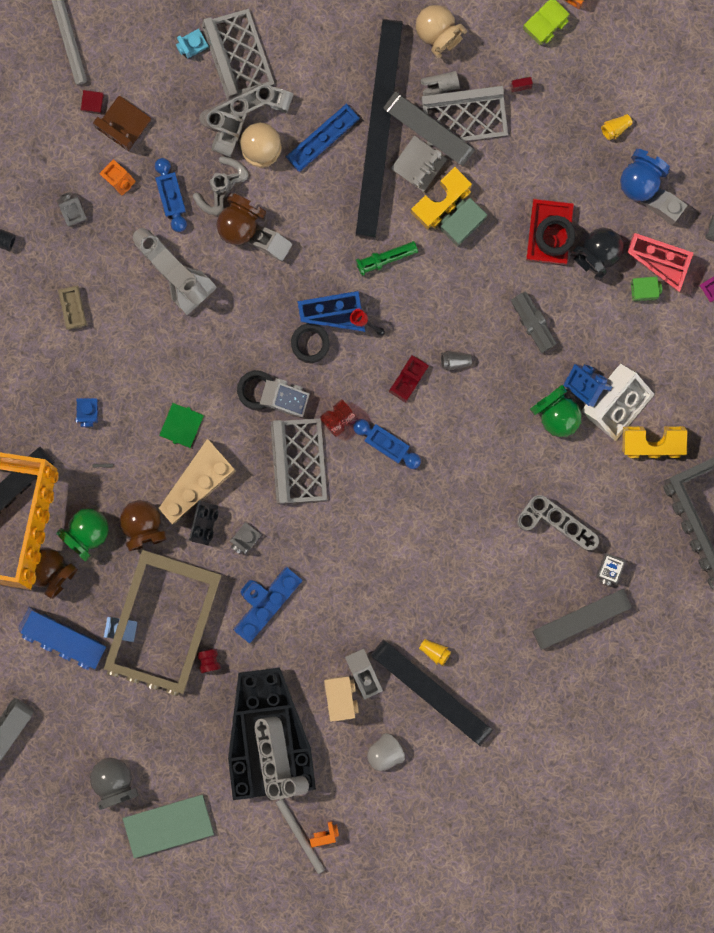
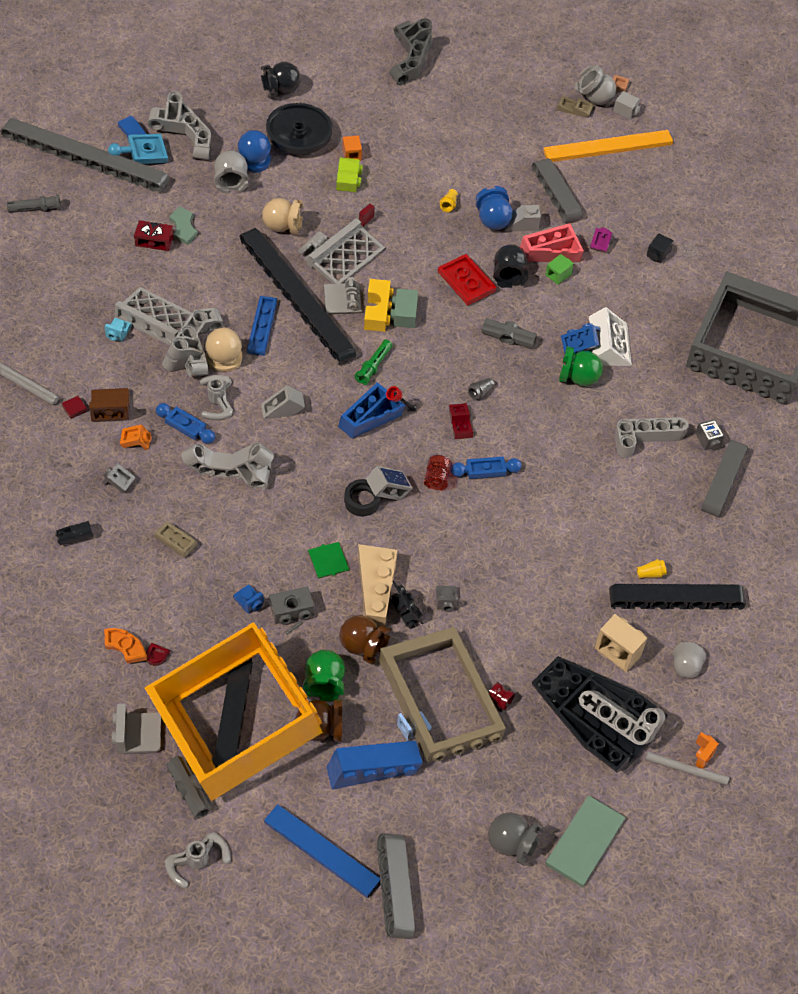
camera: 45 degrees left, 30 degrees down
(104, 438) = (298, 598): none -> dark grey brick
(238, 221) = (250, 399): reddish brown tile -> none
(265, 602) = (502, 626): blue plate -> none
(281, 465) = (425, 529): light grey fence -> none
(313, 328) = (372, 432): black tyre -> none
(363, 674) = (617, 607): light grey slope -> none
(429, 128) = (330, 268): dark grey beam -> none
(560, 221) = (473, 283): black tyre -> none
(672, 443) = (646, 351): yellow arch -> none

